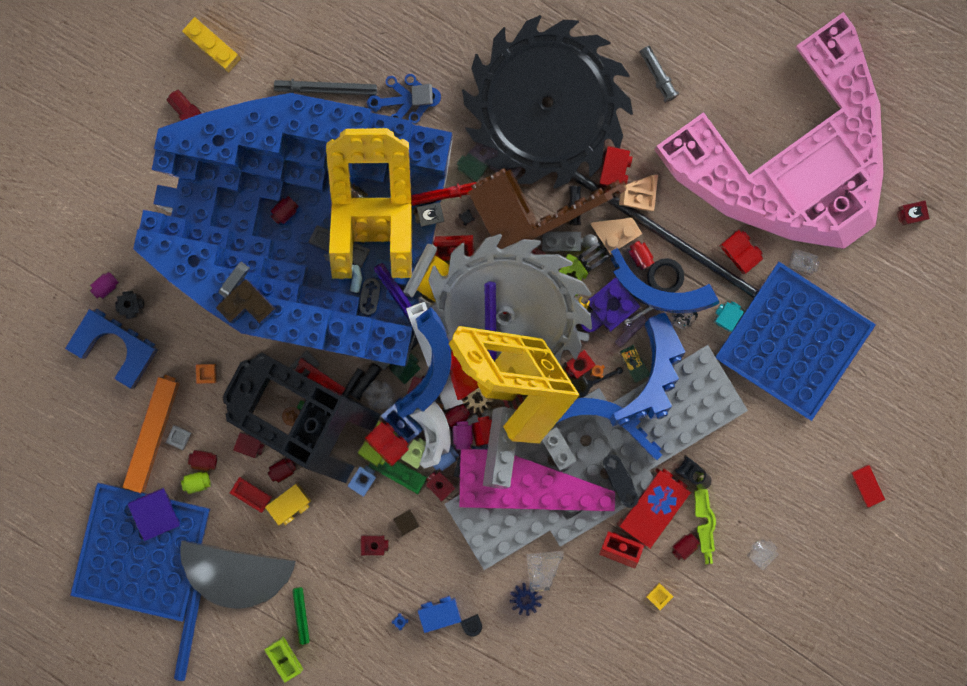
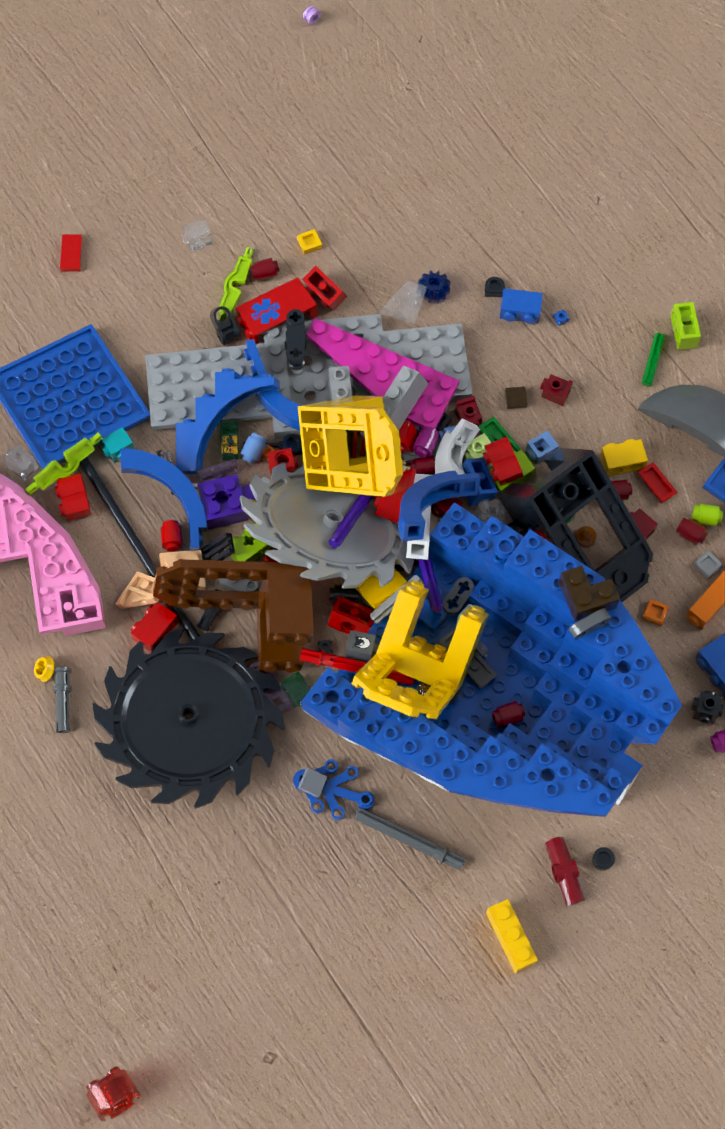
camera: 160 degrees left, 20 degrees down
(610, 366) = (253, 448): none -> medium blue brick
(666, 262) = (152, 493): black tyre -> none
(686, 92) = (44, 668): none -> yellow hat
(759, 283) = (54, 470): none -> lime piece

